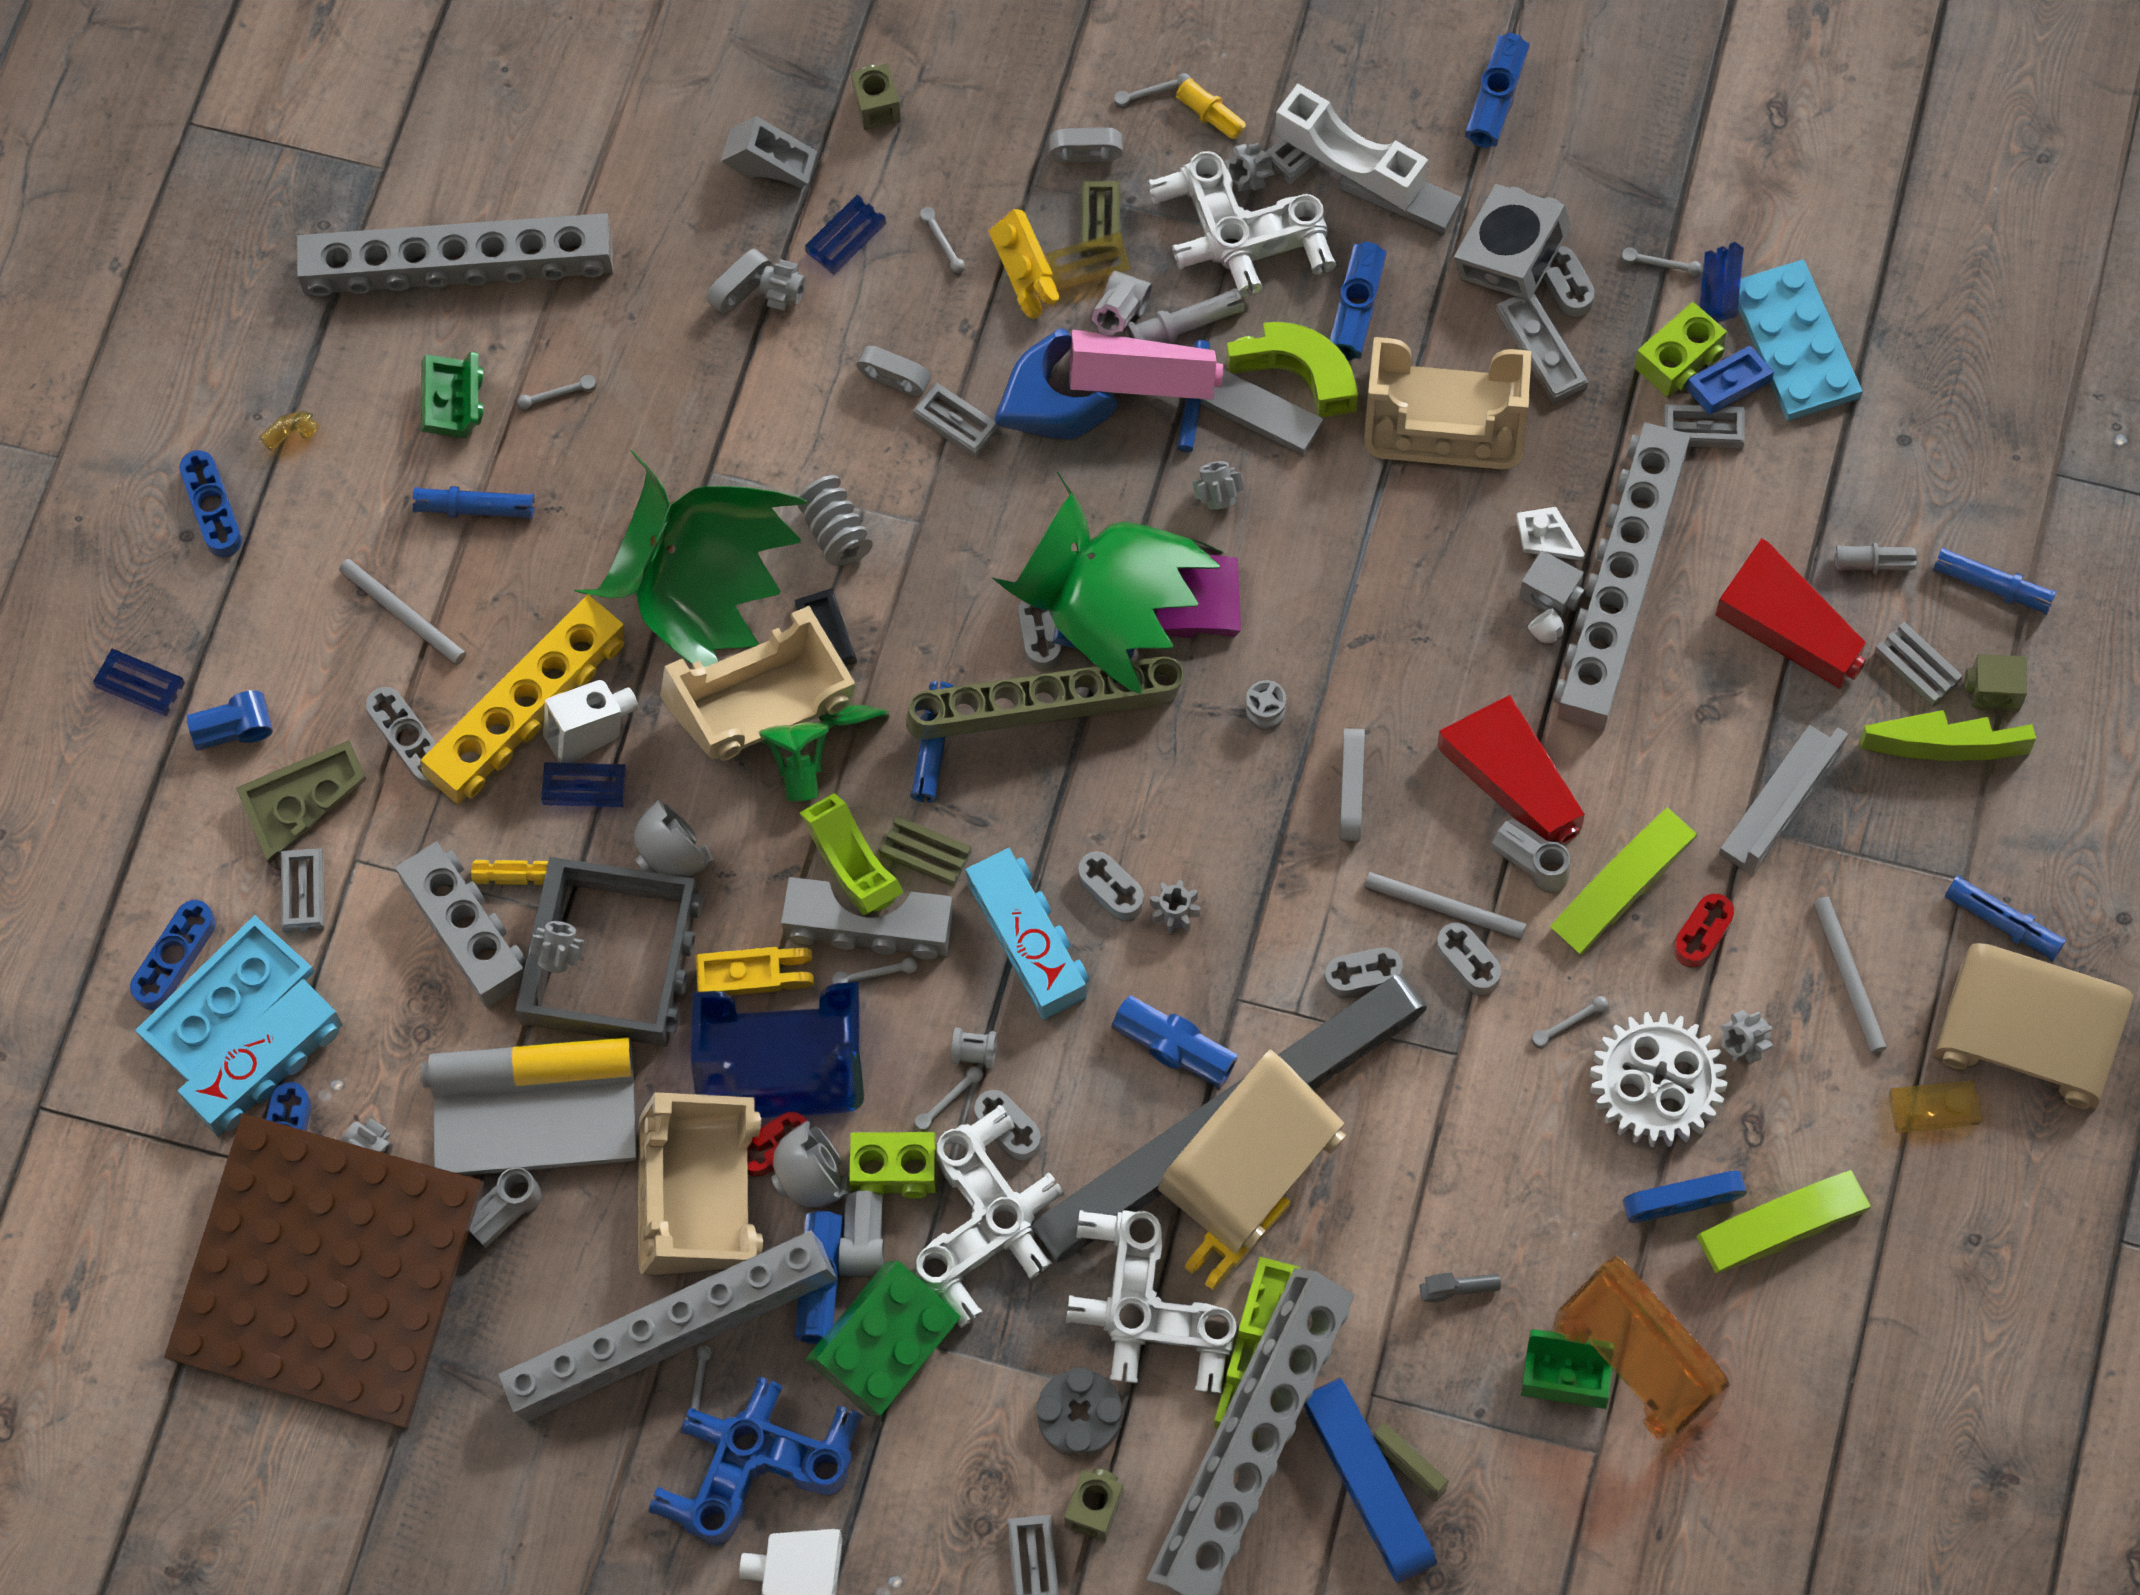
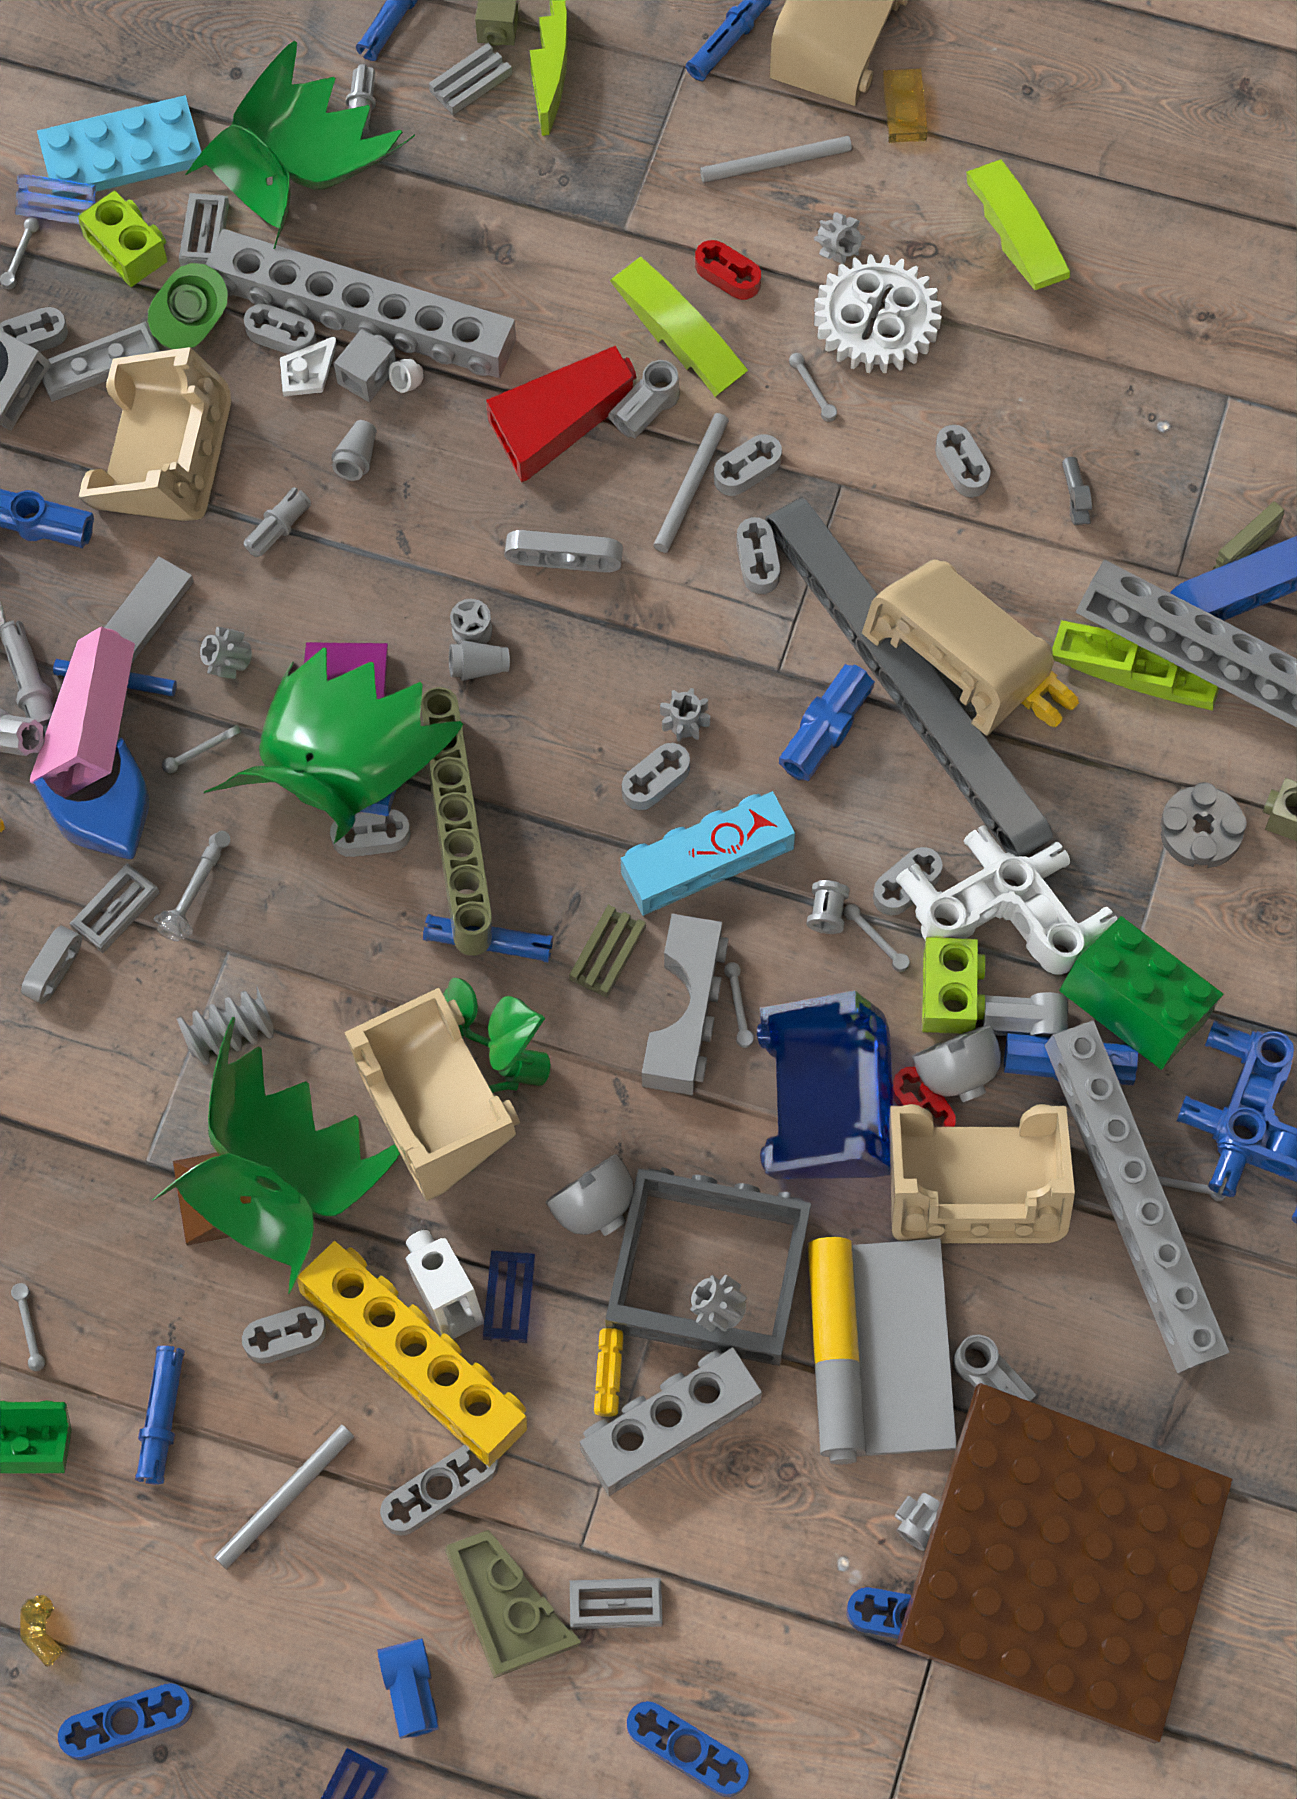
camera: 90 degrees left, 0 degrees up
(223, 998) = (748, 1685): medium azure plate -> none
(261, 1058) = (819, 1641): medium azure brick -> none
(538, 600) = (287, 1344): none -> light grey beam
(752, 970) = (736, 1126): yellow hinge -> none
(830, 618) = (329, 1048): black tile -> none
(849, 856) = (617, 1020): lime arch -> none
(938, 469) = (174, 923): none -> piece
(1105, 453) = (171, 764): none -> light grey hinge
(1161, 1321) = (1087, 761): white pin -> none
(1226, 712) = (477, 660): none -> light grey cone
(1305, 354) = (91, 558): lime arch -> none
(1367, 520) = (277, 522): none -> light grey axle
(1454, 585) = (354, 452): none -> light grey cone
(1485, 1163) = (969, 456): none -> light grey beam
(1565, 1371) = (1159, 405): green bracket -> none
(1596, 411) = (187, 306): none -> bright green piece
(1599, 508) = (280, 328): none -> light grey beam
(1647, 1350) = (1151, 321): clear orange windscreen -> none
(1684, 1196) = (991, 301): blue beam -> none
(1729, 380) = (161, 199): blue plate -> none
(1782, 798) = (602, 191): light grey fence -> none
(1791, 617) = (418, 175): red slope -> none
(1821, 493) = (290, 137): none -> green piece

